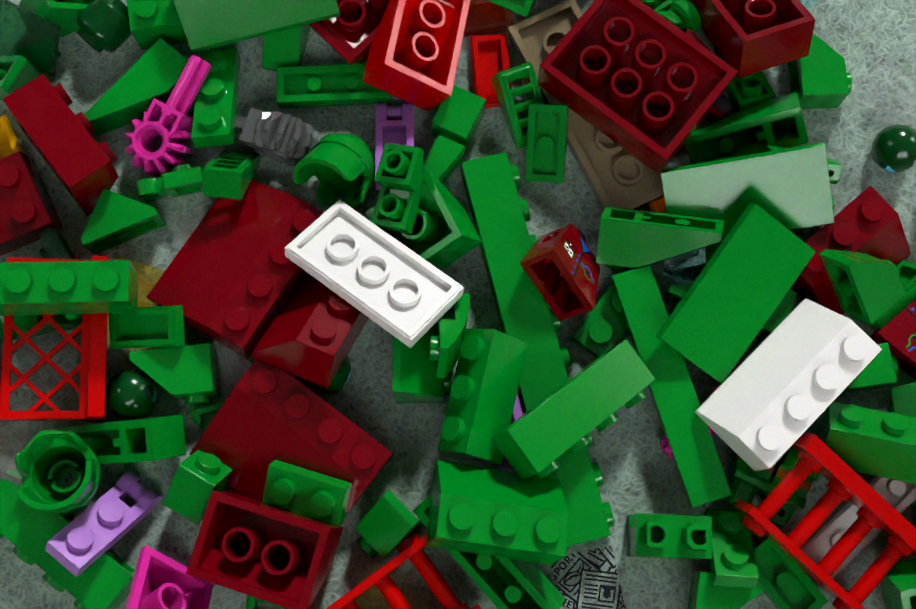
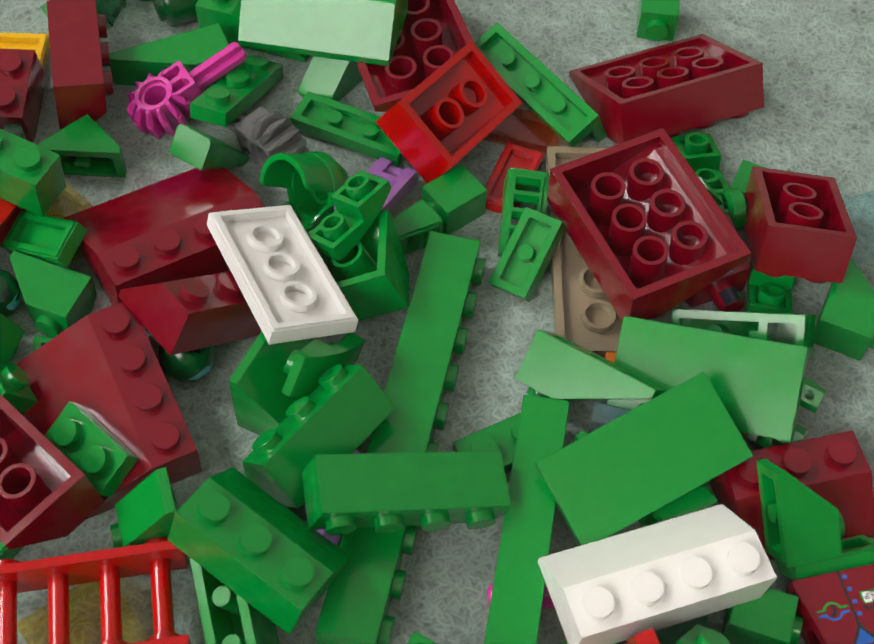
camera: 25 degrees right, 20 degrees down
(182, 181) = (151, 140): green plate -> none
(564, 271) = (474, 364): dark red torso -> none

